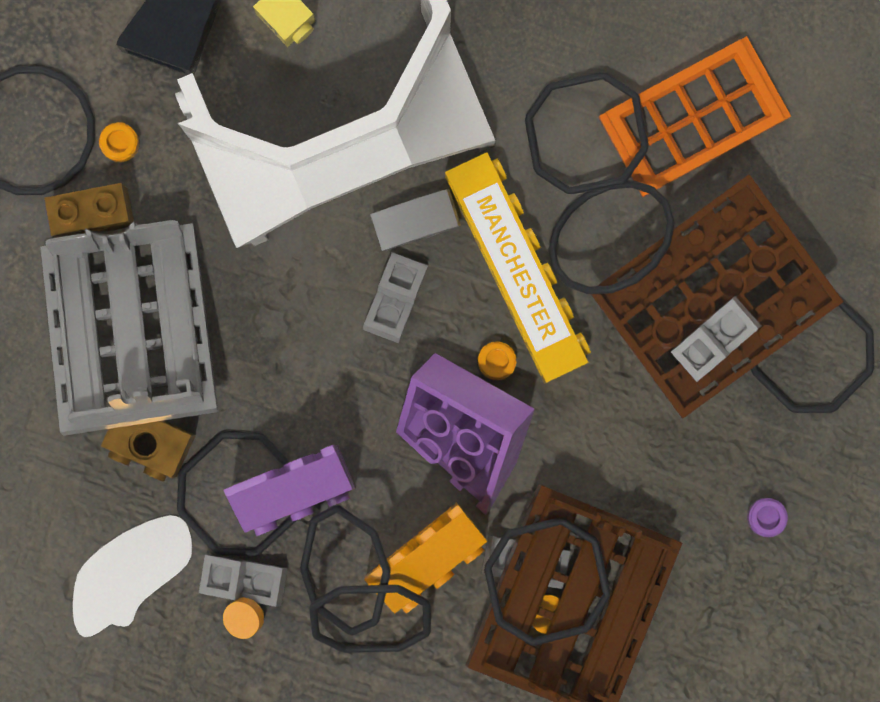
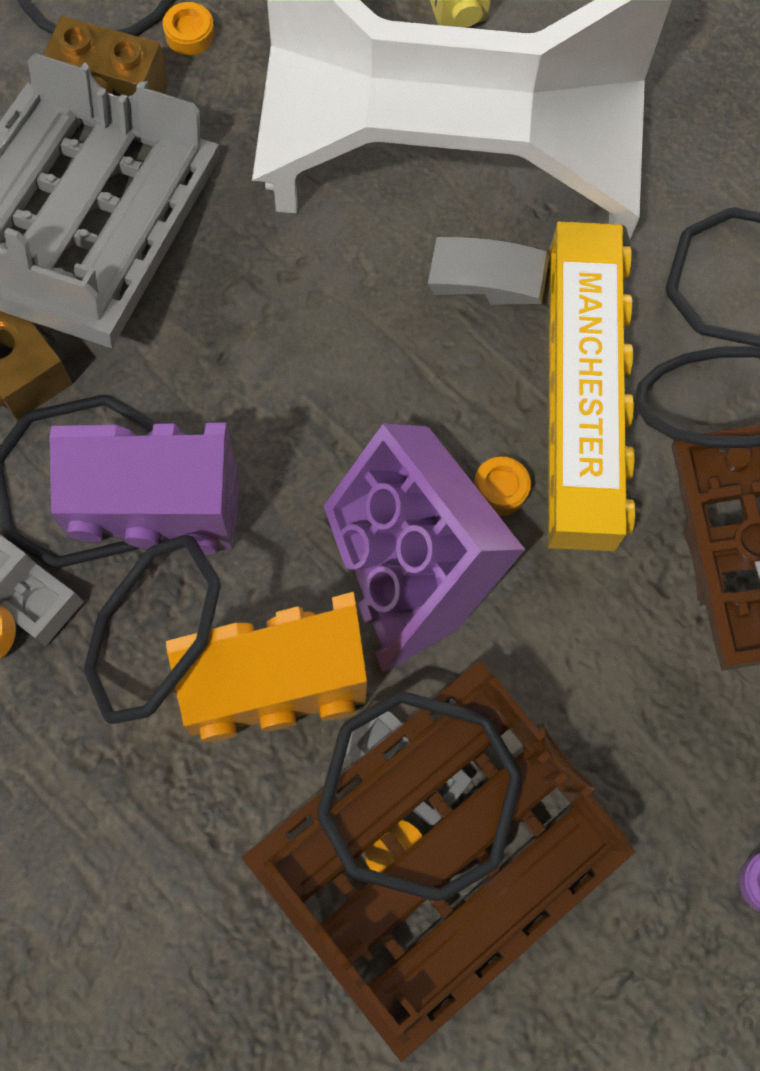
camera: 25 degrees right, 15 degrees down
(370, 589) = (173, 658): black piece -> none
(395, 297) = (414, 348): light grey slope -> none

